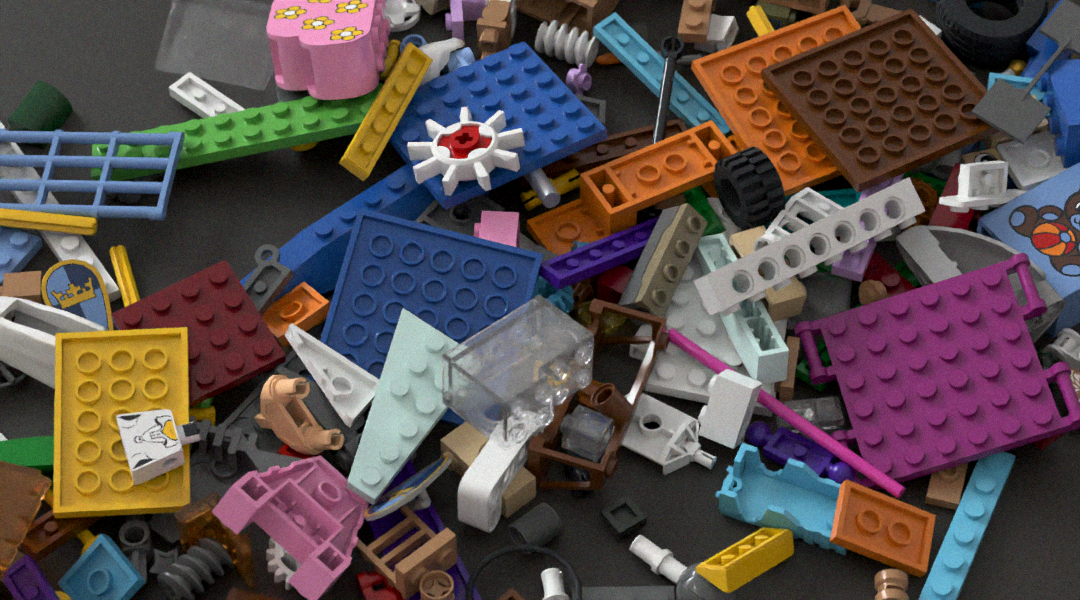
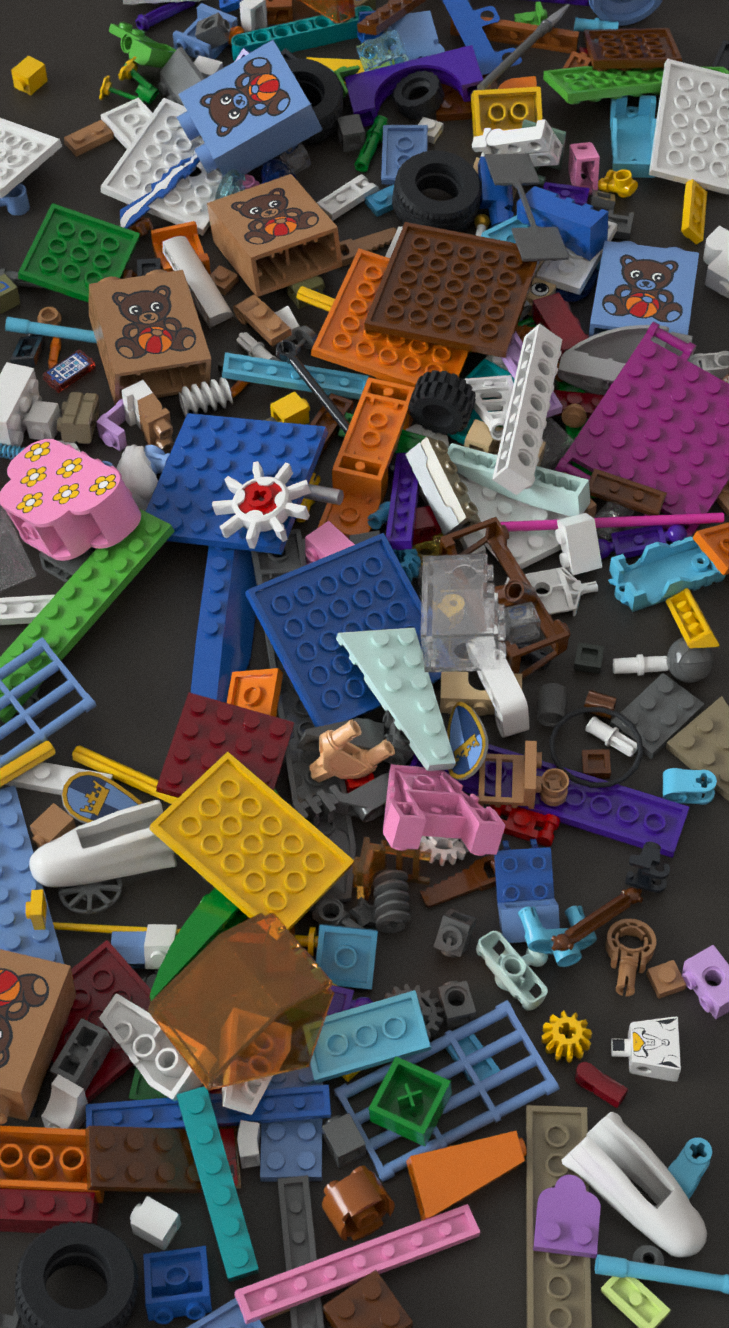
camera: 45 degrees left, 5 degrees up
(154, 442) = (296, 839): white torso -> none
(267, 279) = (213, 682): dark grey hinge -> none
(342, 381) = (340, 708): white wing -> none
(386, 112) = (167, 520): yellow tile -> none
(578, 79) = (238, 412): lavender plate -> none
(583, 563) = (597, 699): none -> reddish brown piece
(625, 109) = (291, 409): none -> yellow brick
(666, 27) = (254, 348): none -> white axle
(831, 398) = (626, 493): none -> reddish brown tile
(981, 186) = (575, 304): white bracket -> none

